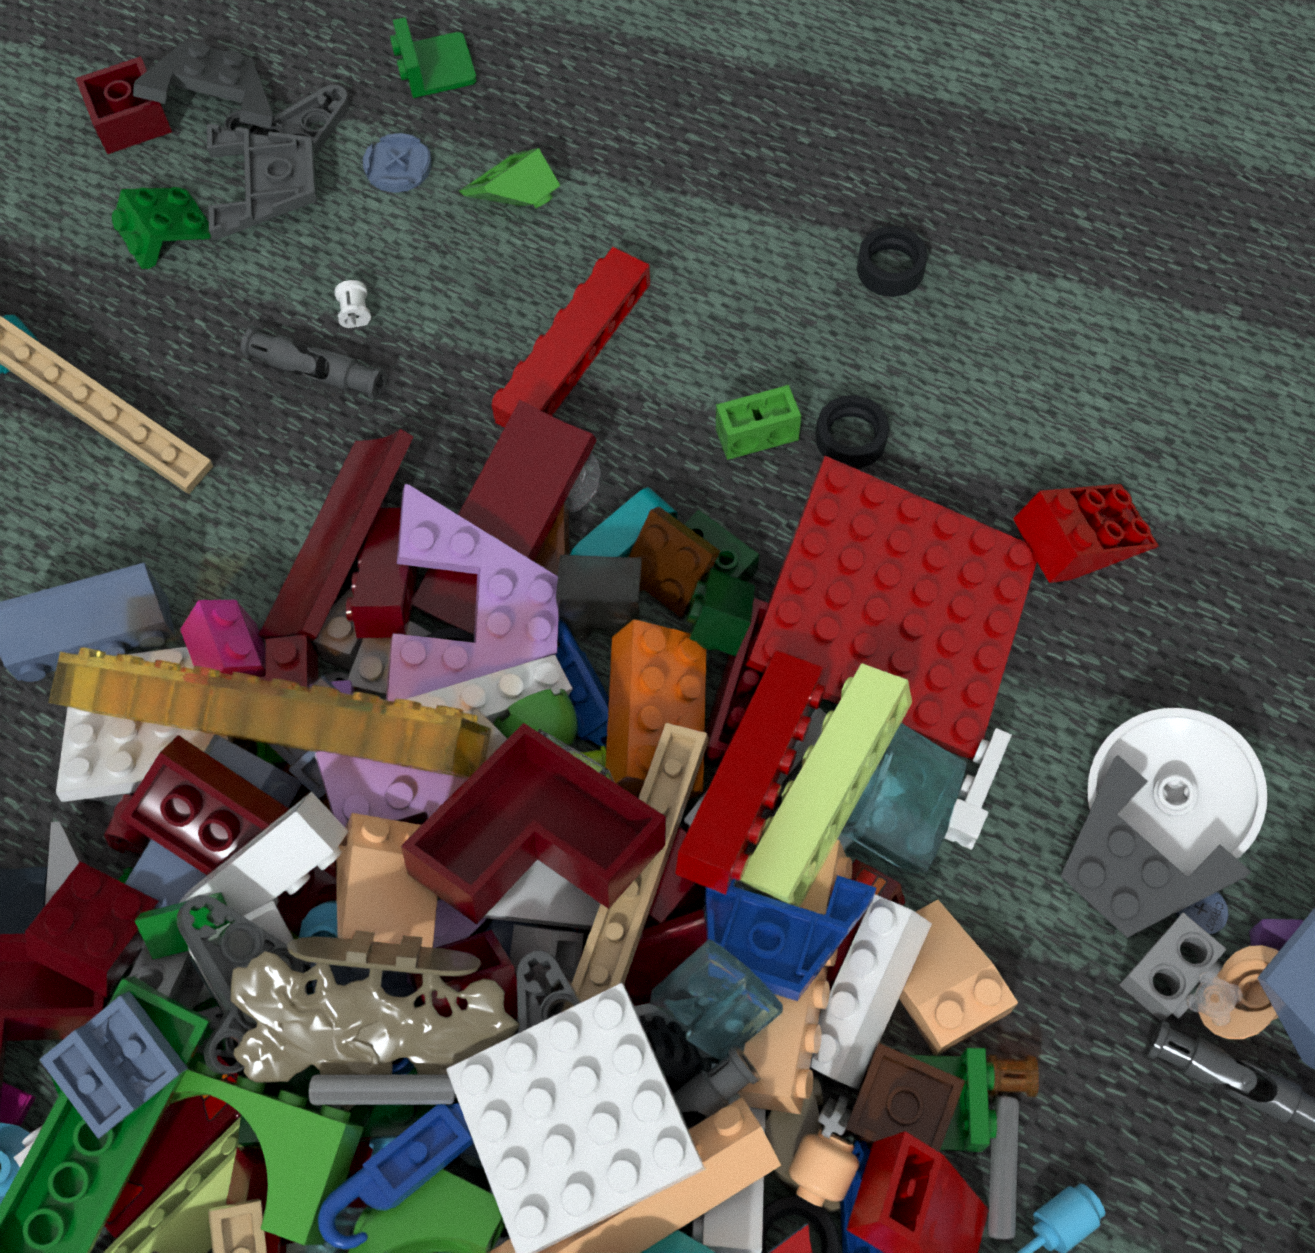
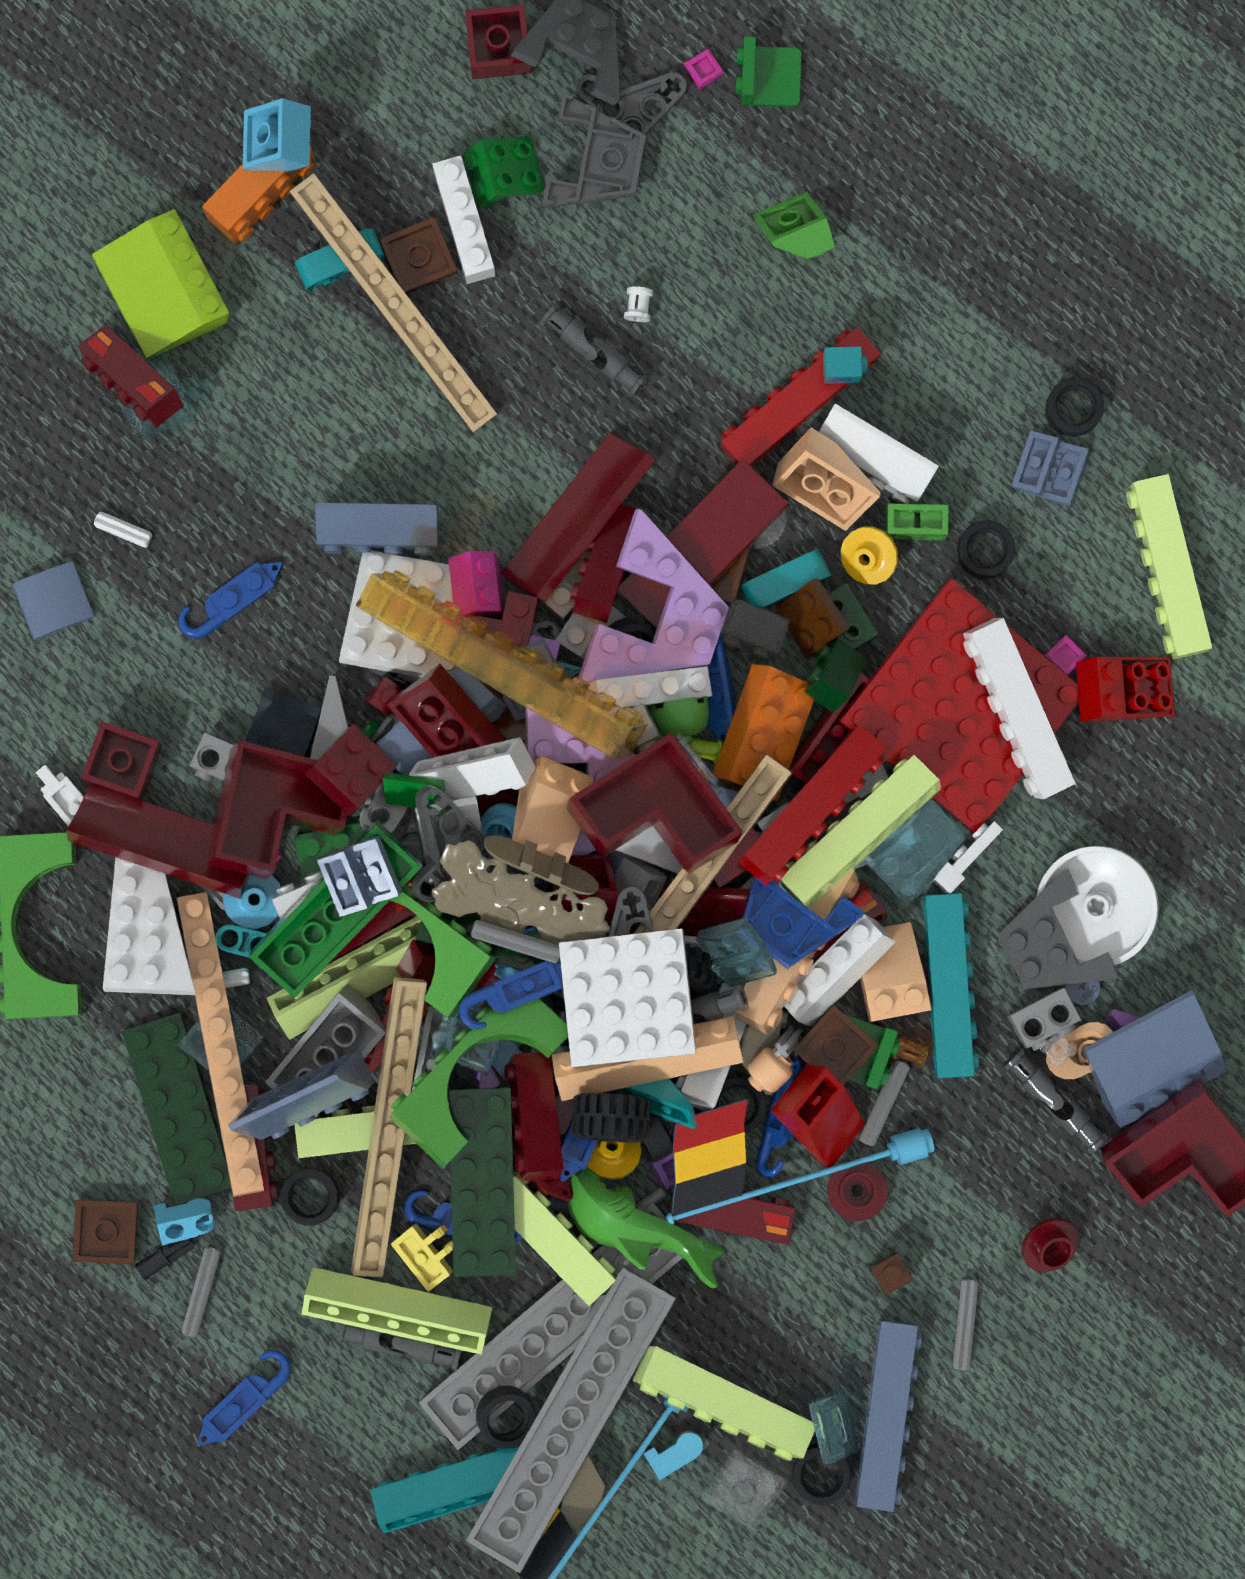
camera: 10 degrees right, 20 degrees up
(80, 329) = (418, 255): none -> reddish brown plate
(124, 278) = (463, 219): none -> white brick
(362, 78) = (703, 69): none -> dark pink tile
(397, 163) = (709, 170): sand blue tile -> none
(609, 279) = (843, 365): none -> teal brick
(634, 407) = (825, 480): none -> light nougat slope
(679, 363) = (879, 456): none -> white slope
(732, 469) = (877, 546): none -> yellow piece
(874, 333) = (1038, 463): none -> sand blue slope
(970, 580) = (1018, 708): none -> white brick
(997, 514) = (1065, 655): none -> dark pink tile
(1020, 949) = (949, 985): none -> teal brick
(1077, 386) = (1169, 566): none -> yellowish green brick

